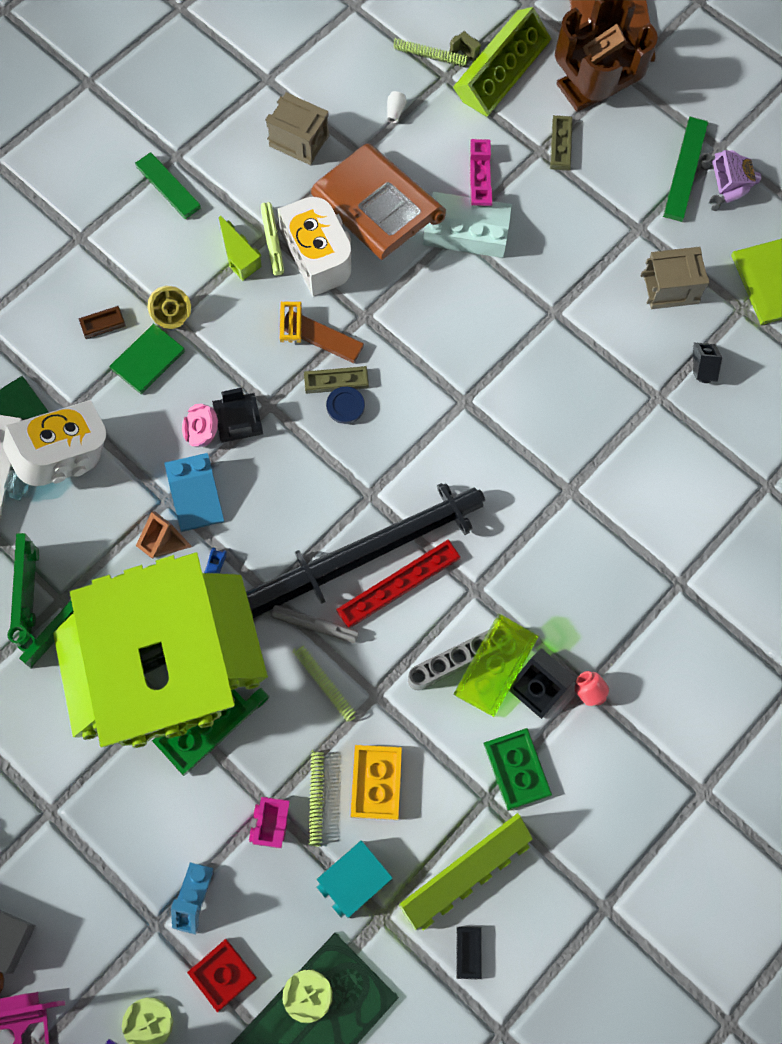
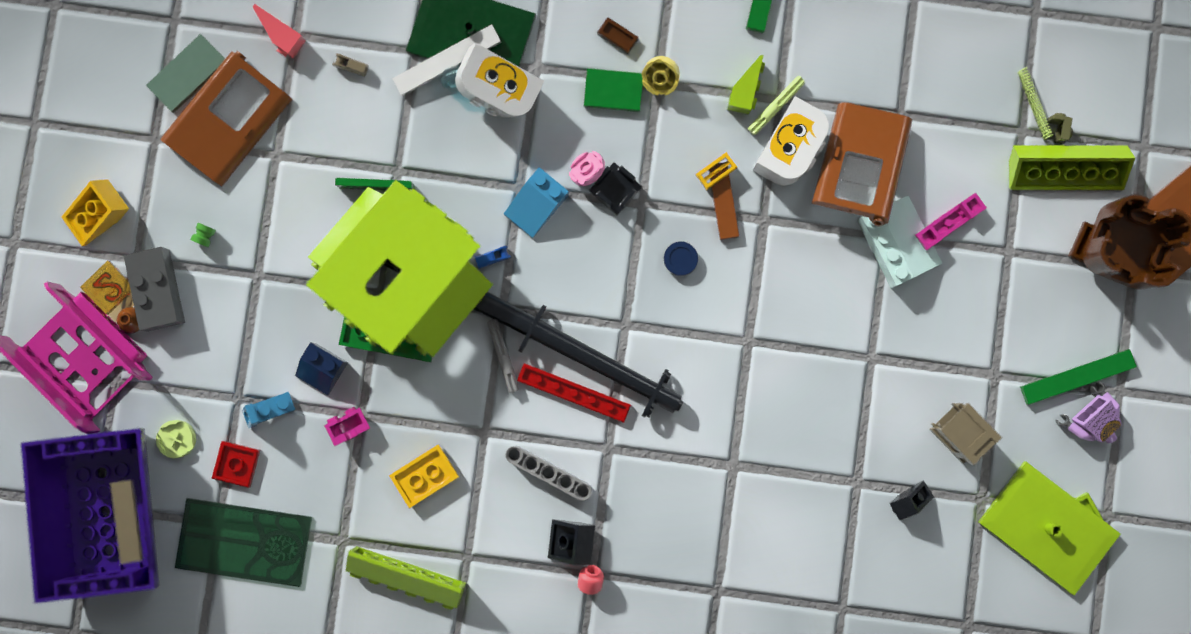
camera: 60 degrees right, 15 degrees up
(23, 590) = (366, 155): green hinge -> none
(160, 537) = (487, 204): nougat slope -> none
(191, 811) = (320, 368): none -> dark blue slope
(297, 128) = (882, 55): dark tan container -> none
(307, 996) = (259, 528): yellowish green tile -> none
(313, 827) = (392, 443): yellowish green piece -> none
(322, 686) = (467, 392): yellowish green piece -> none
(331, 379) = (696, 236): olive tile -> none
(353, 880) = (350, 507): teal panel -> none
(396, 104) = (962, 113): white cone -> none
(468, 952) = (358, 613): black tile -> none
(496, 665) = (559, 503): clear neon green tile -> none
(517, 769) = (500, 564): green tile -> none
(561, 143) = (1028, 263): olive tile -> none
(605, 44) = (1137, 242): medium nougat tile -> none

